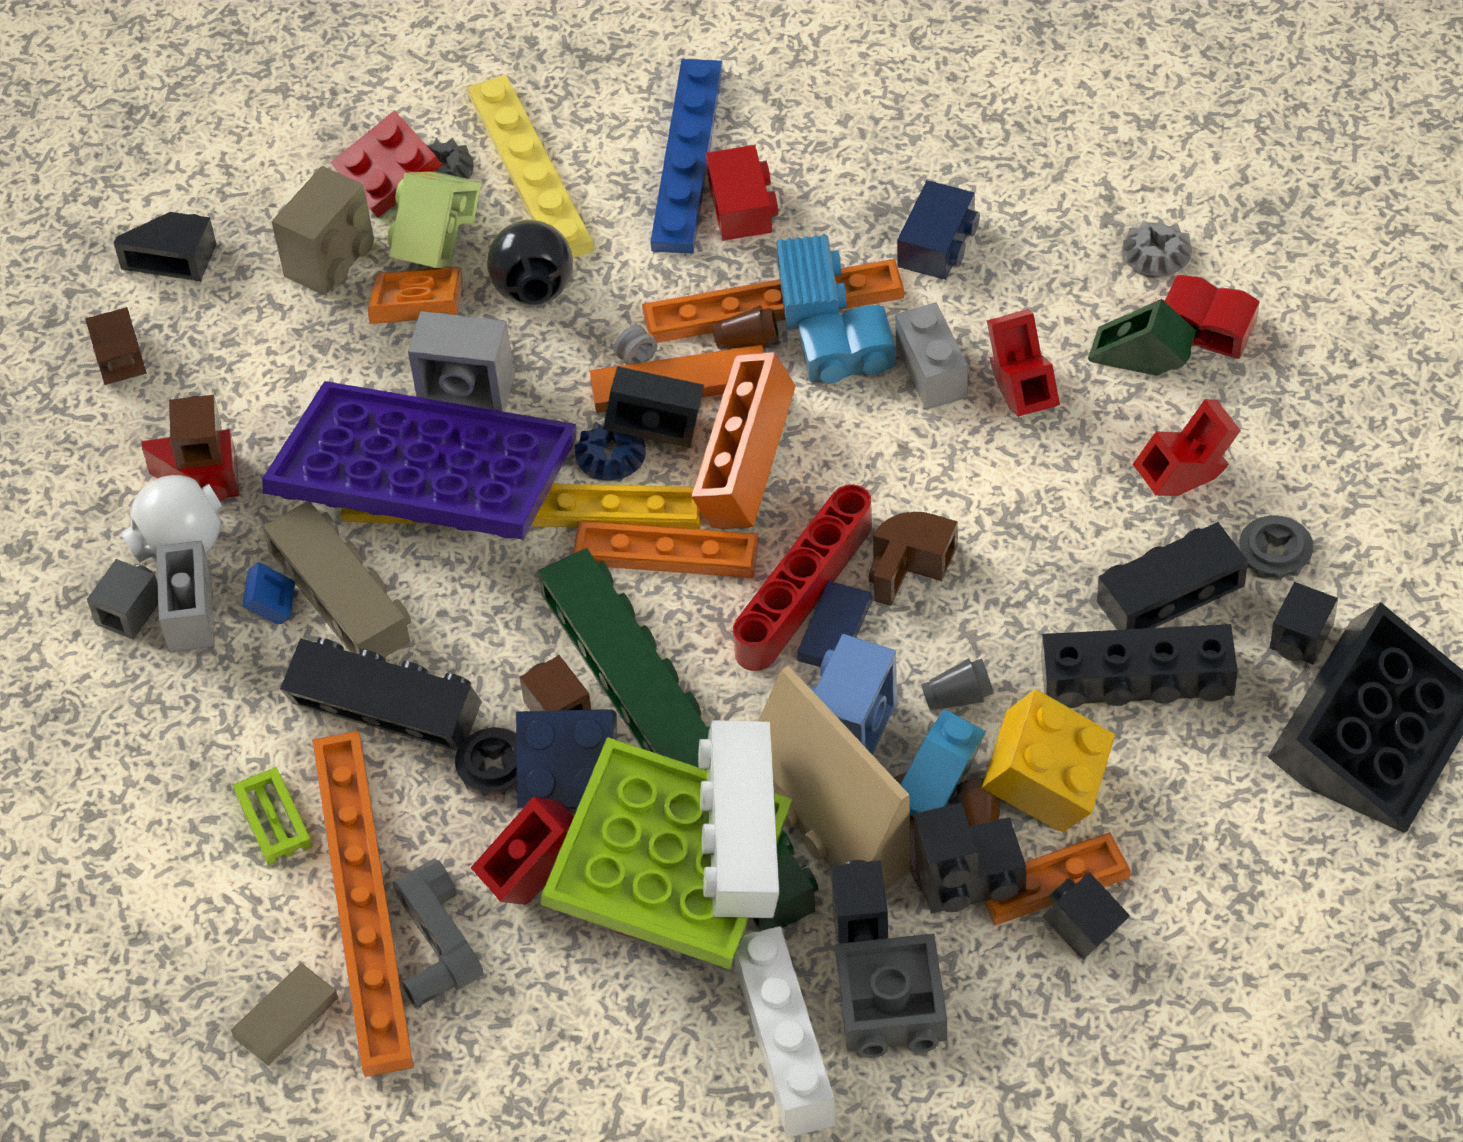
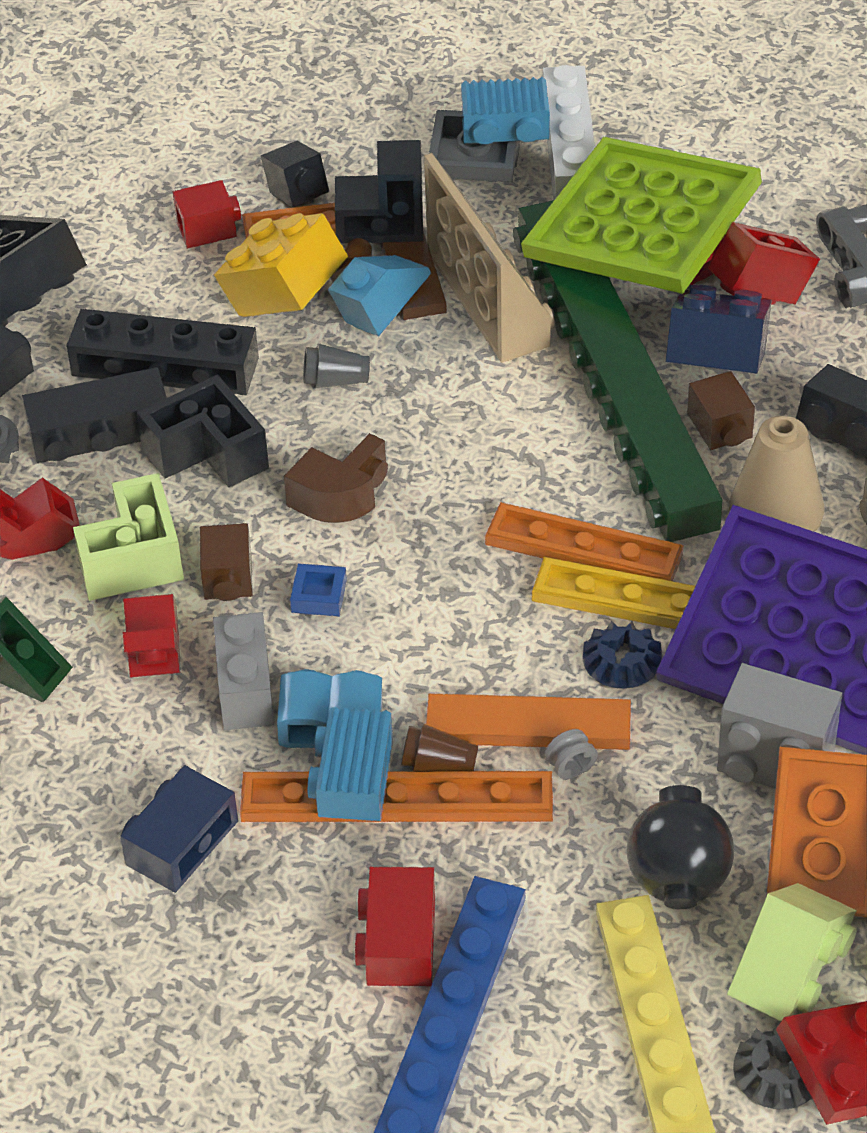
camera: 170 degrees left, 5 degrees down
(488, 607) = (781, 475): none -> tan cone
(493, 744) = (784, 366): black gear -> none
(653, 407) = (566, 655): black brick -> none
(740, 819) = (573, 202): white brick -> none
(743, 441) = (475, 605): orange brick -> none
(802, 577) = (450, 478): red beam -> none
(837, 613) = (433, 445): dark blue tile -> none
(857, 991) = (505, 110): none -> dark azure brick
(859, 687) = (441, 333): medium blue brick -> none
(859, 901) = (486, 176): black brick -> none
(894, 451) = (318, 590): none -> blue plate
(986, 455) = (226, 561): none -> reddish brown brick
(1050, 572) = (201, 426): none -> black brick
(1071, 442) = (134, 548): none -> yellowish green brick
(1167, 850) = (206, 213): none -> red brick

